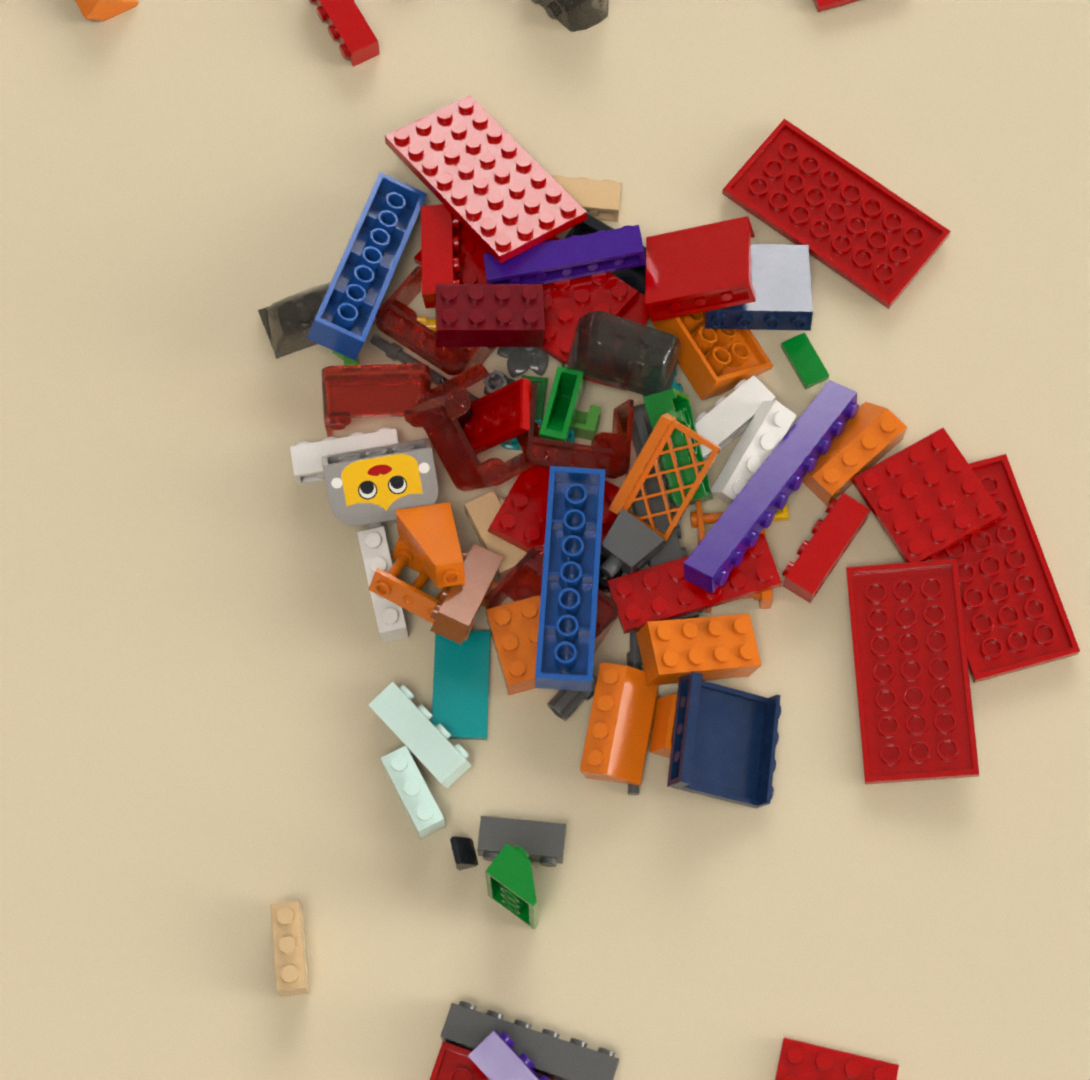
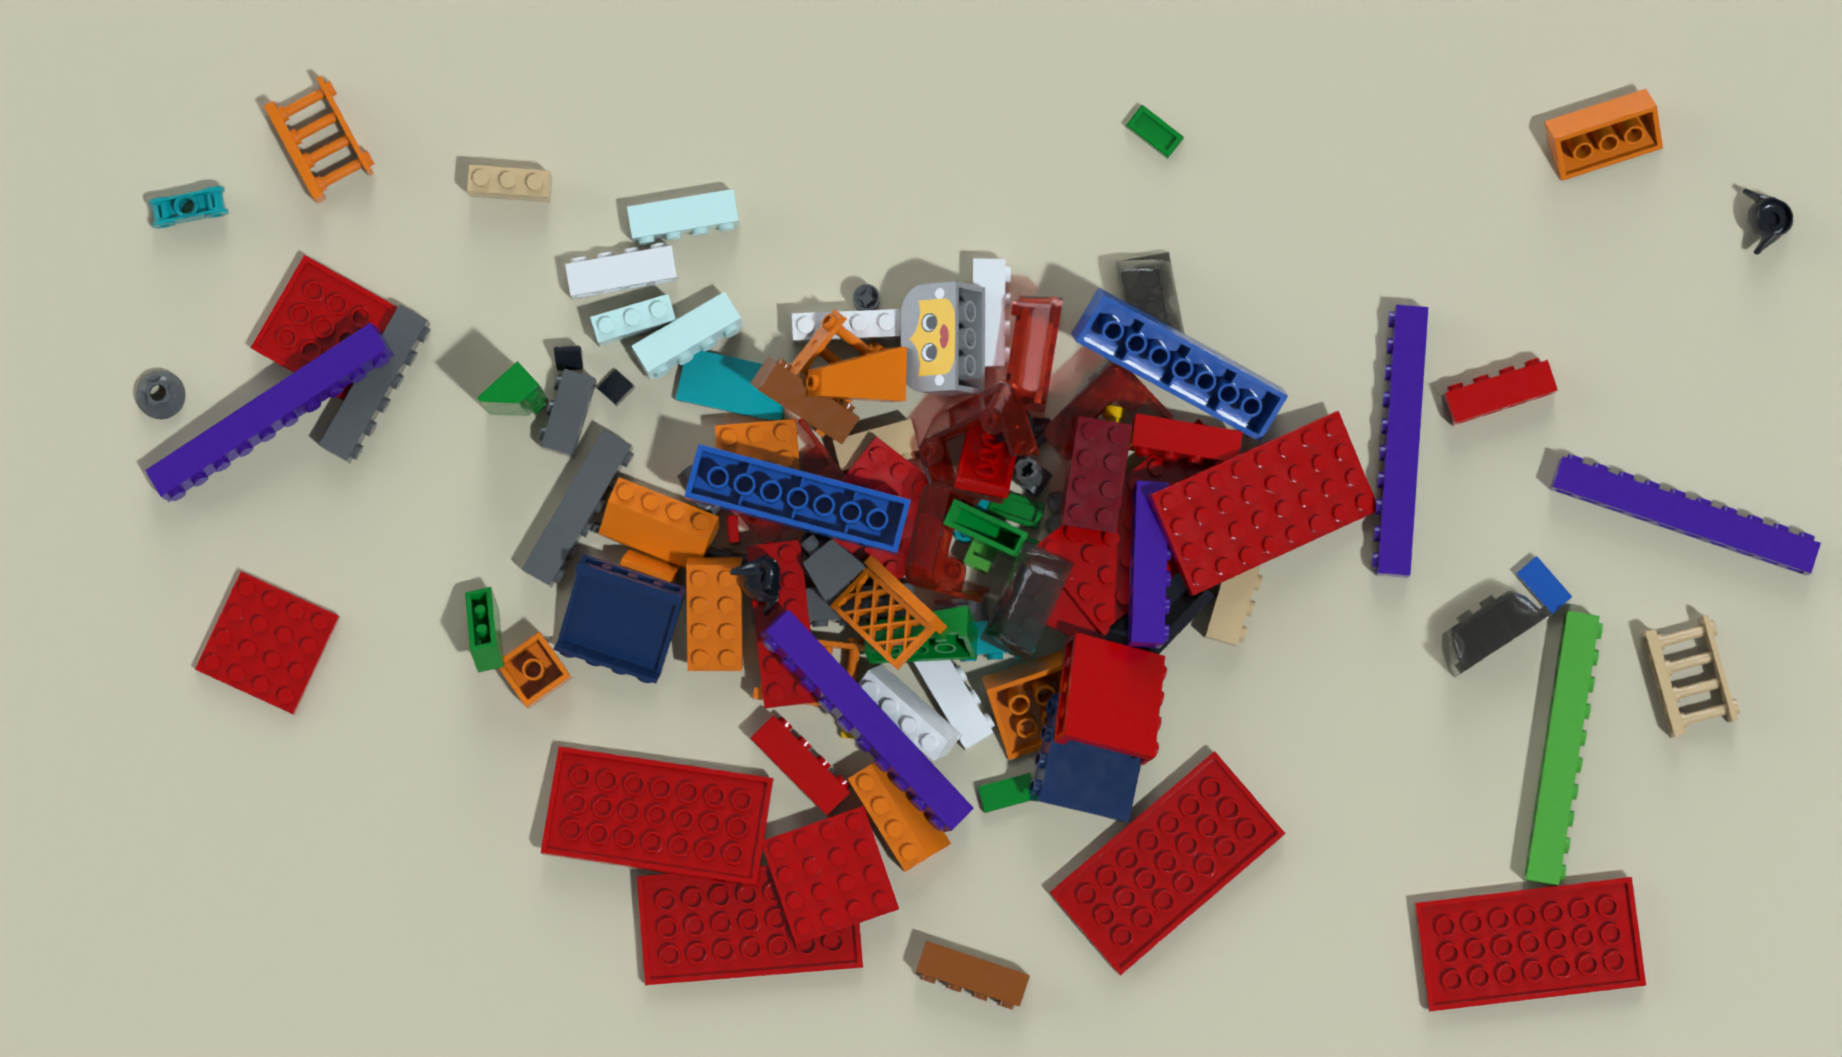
camera: 100 degrees right, 15 degrees up
(142, 344) = (1154, 131): none -> green tile
(296, 766) = (683, 216): none -> light aqua brick
(350, 566) = (867, 294): none -> dark grey wheel
(364, 814) = (621, 271): none -> white brick
(401, 86) = (1401, 441): none -> dark purple brick
(485, 798) = (616, 387): none -> black slope
(608, 654) = (733, 530): none -> red tile
(618, 811) = (577, 509): none -> dark grey brick
(659, 601) = (760, 580): none -> black piece
(767, 872) = (484, 629): none -> green brick
(795, 819) = (534, 670): none -> orange brick
(984, 358) = (972, 974): none -> dark orange brick

